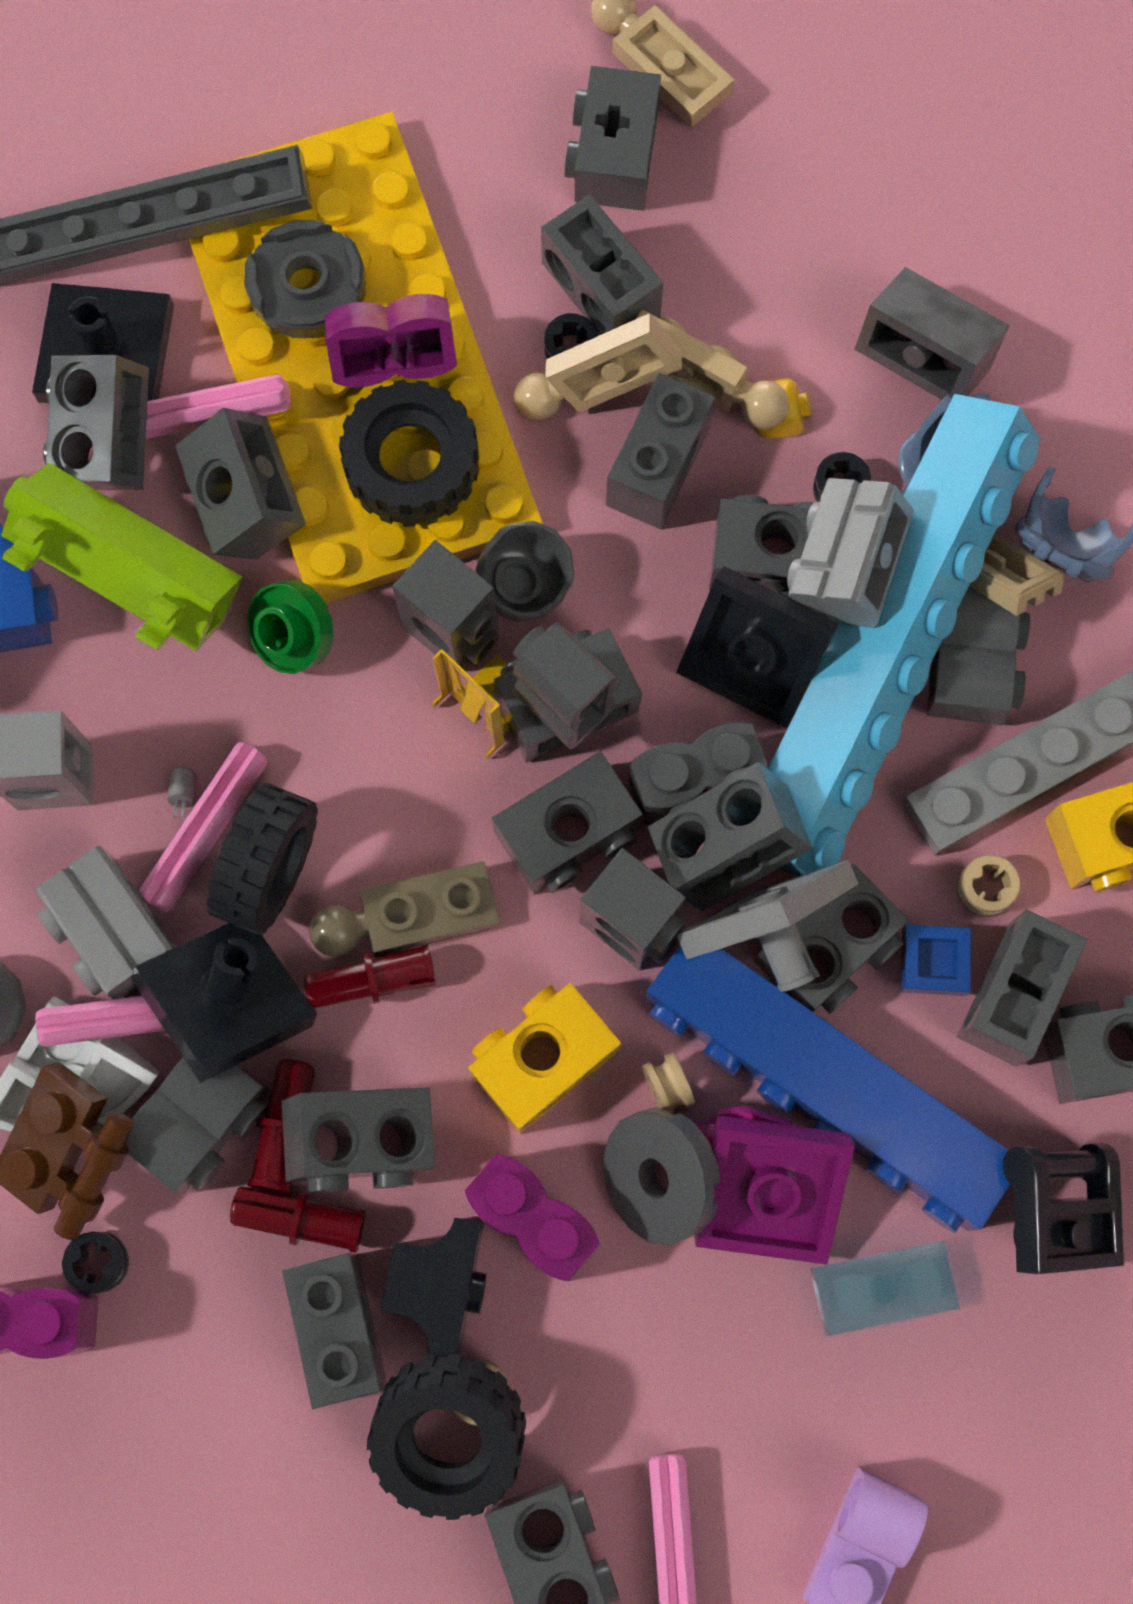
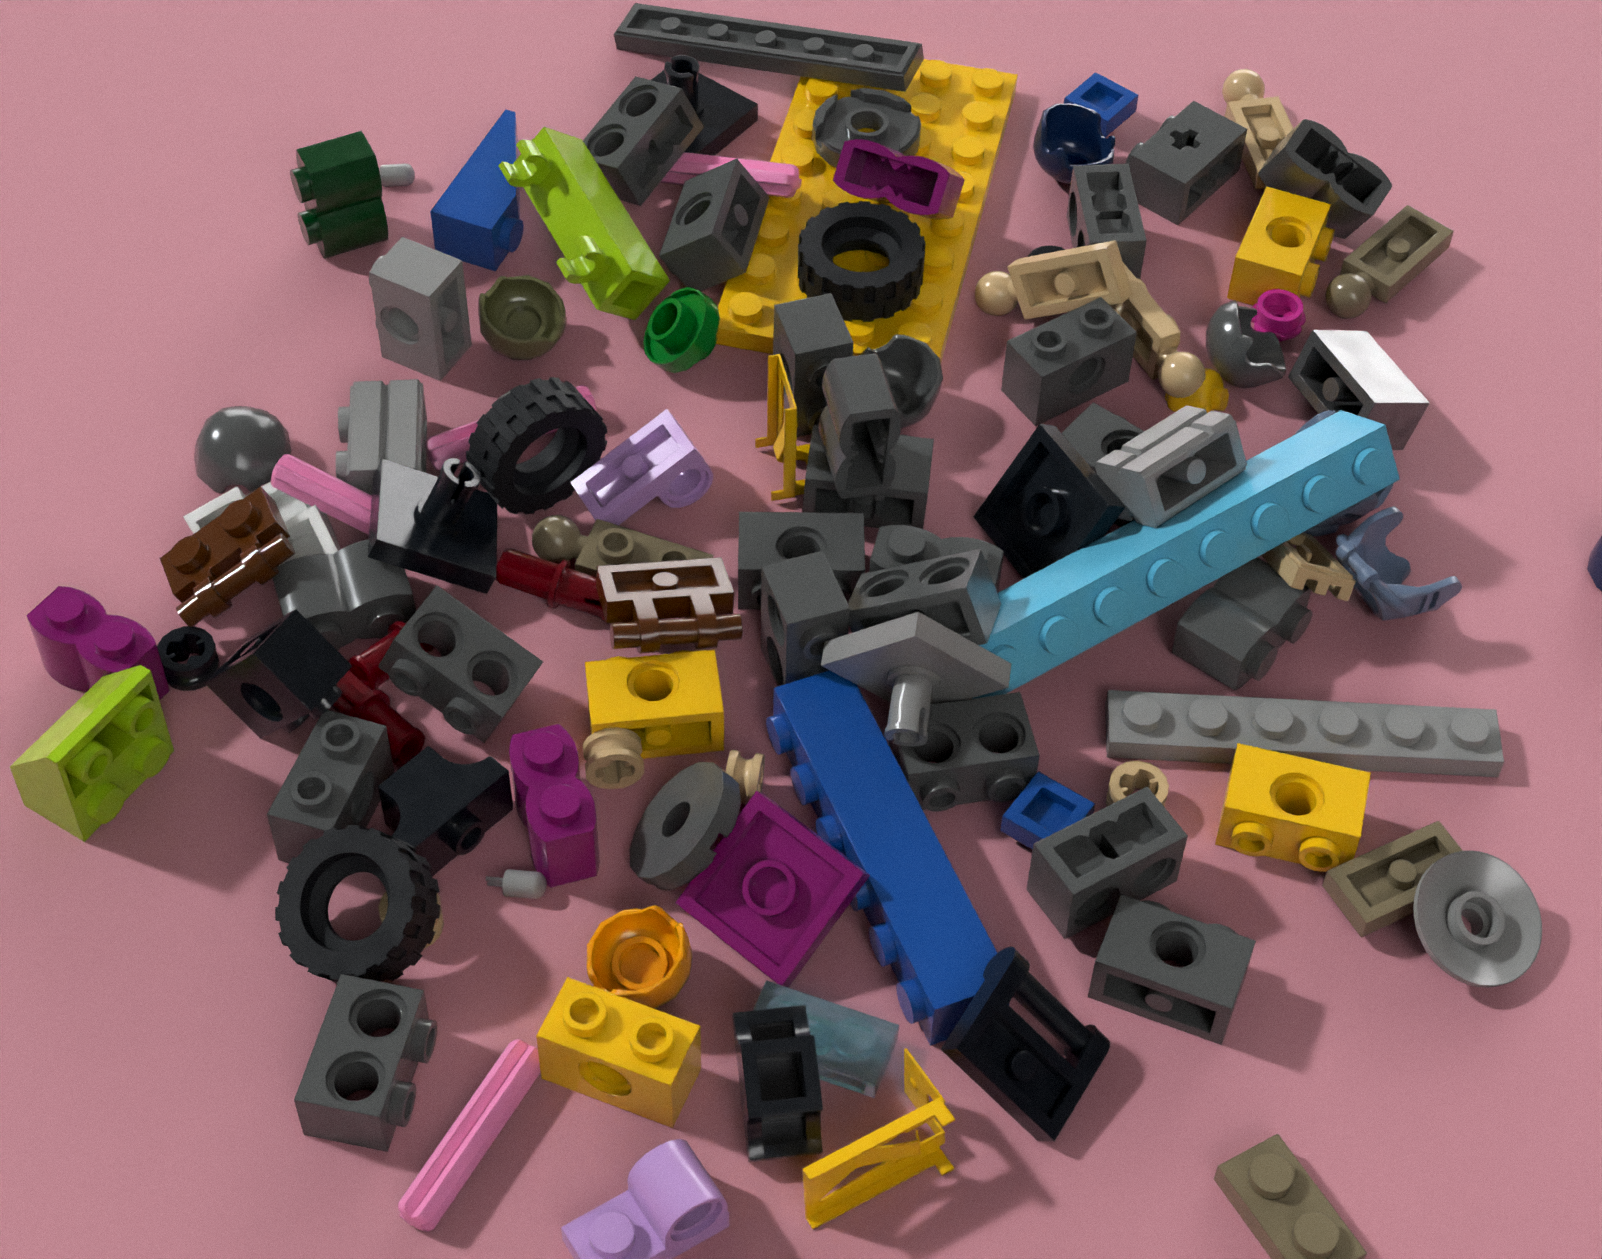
camera: 30 degrees right, 25 degrees down
(99, 1431) = (96, 753): none -> lime slope
(130, 700) = (521, 317): none -> olive hair
(215, 1259) = (281, 676): none -> black brick
(367, 809) = (646, 465): none -> lavender plate
(487, 942) = (665, 590): none -> reddish brown plate
(493, 106) = (1107, 98): none -> blue plate
(505, 179) = (1069, 138): none -> dark blue hair
(544, 1133) = (613, 758): none -> tan bush
(548, 1298) = (520, 883): none -> light grey piece
(705, 1323) = (640, 956): none -> light orange hair
(750, 1421) = (619, 1051): none -> yellow brick
(761, 233) = (1281, 247): none -> yellow brick
(767, 99) = (1318, 167): none -> dark grey brick
(802, 342) = (1241, 353): none -> dark grey hair
(804, 265) = (1279, 313): none -> dark pink plate
(862, 157) = (1387, 262): none -> dark tan plate
(892, 1365) = (778, 1083): none -> black brick
(1009, 1394) = (899, 1160): none -> yellow piece

